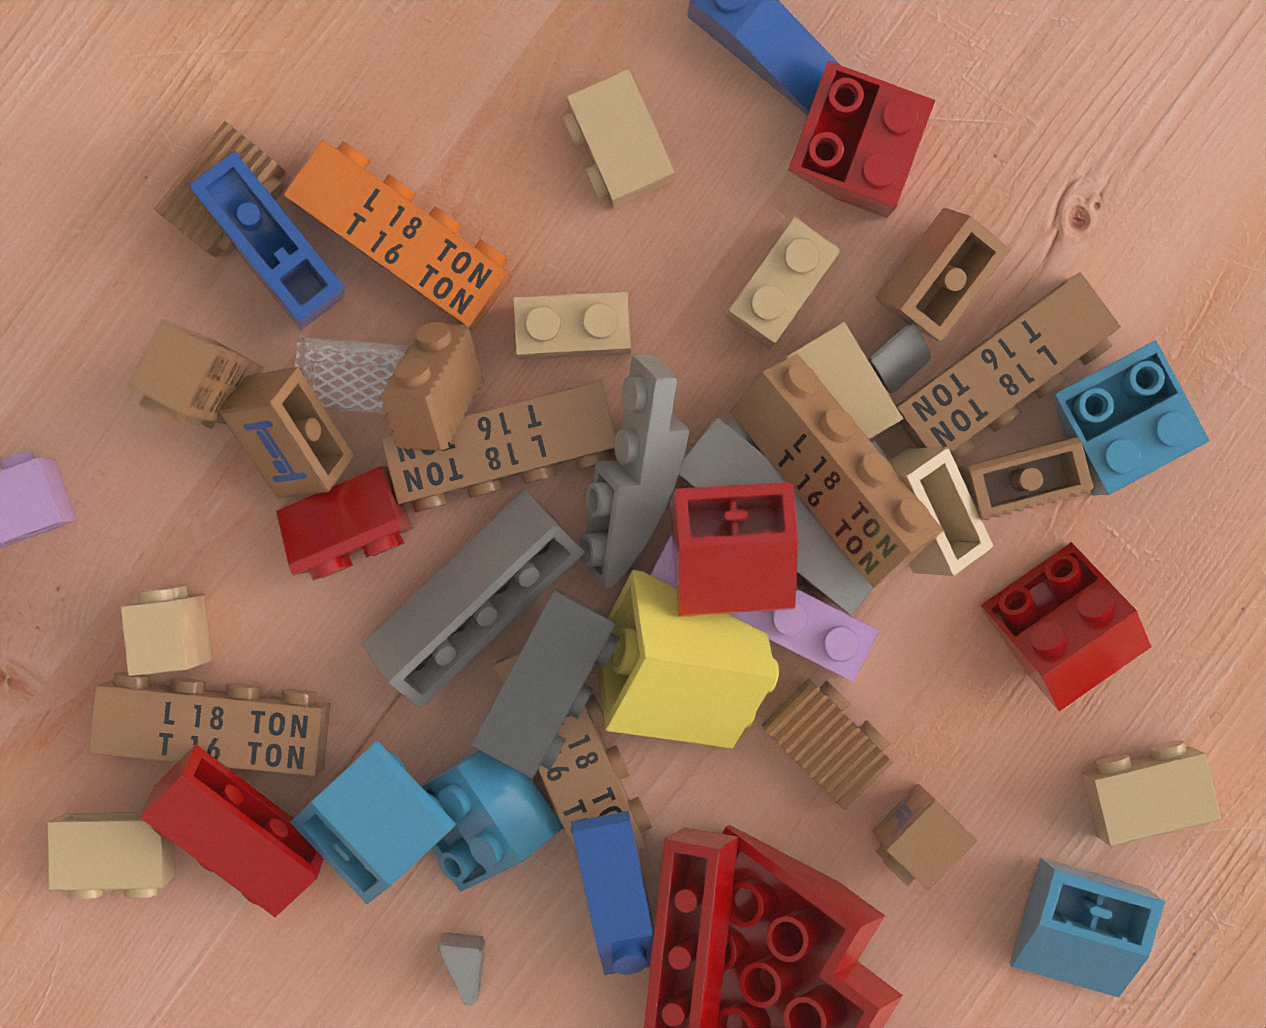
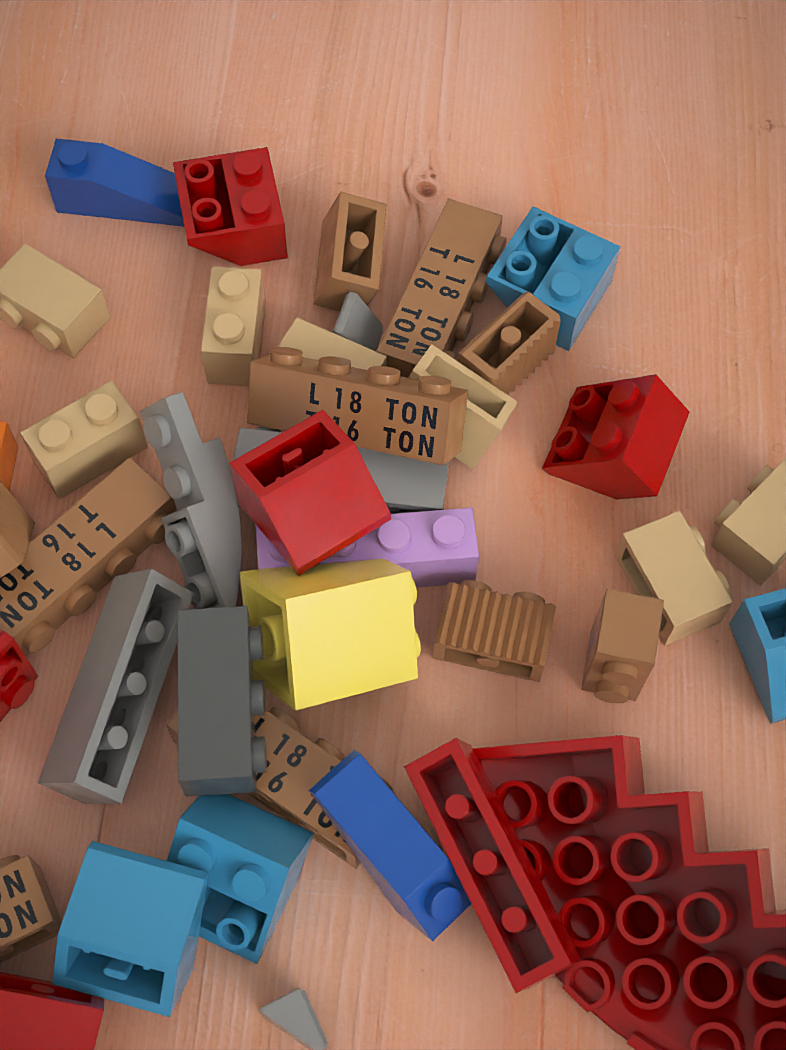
camera: 35 degrees left, 25 degrees down
(1020, 792) = (671, 564): none -> tan piece

